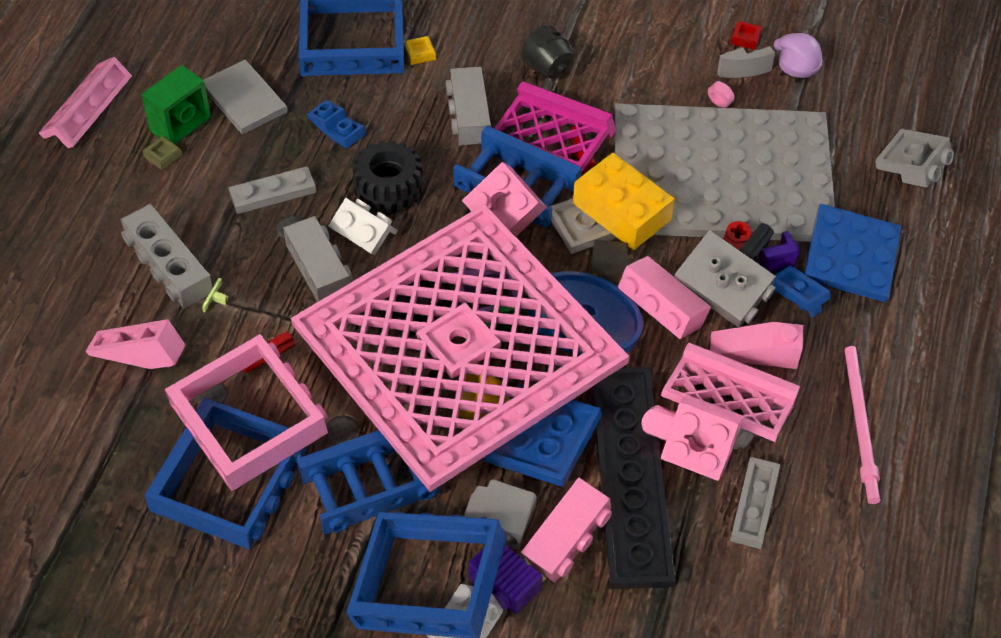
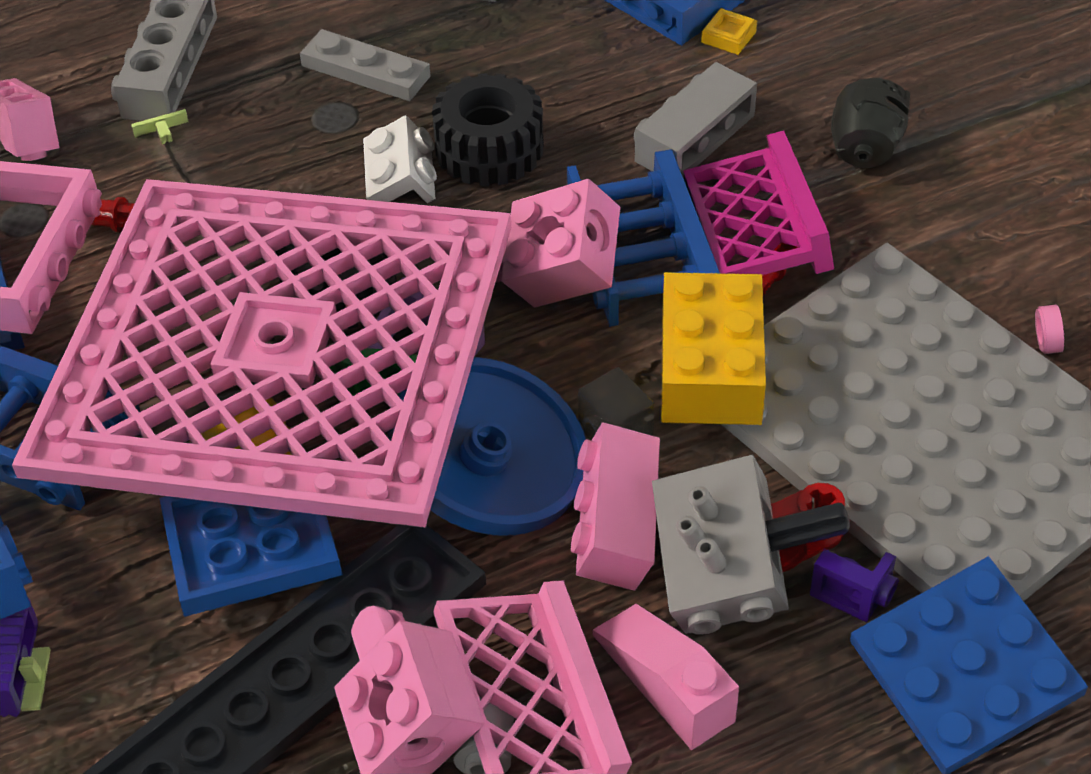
camera: 50 degrees right, 5 degrees down
(316, 257) = (302, 150): light grey brick -> none
(334, 123) = (524, 43): blue slope -> none
(507, 504) = (83, 583): light grey piece -> none
(567, 530) = (111, 666): bright pink brick -> none
(577, 227) = (633, 344): light grey plate -> none
(801, 290) = (819, 649): blue plate -> none

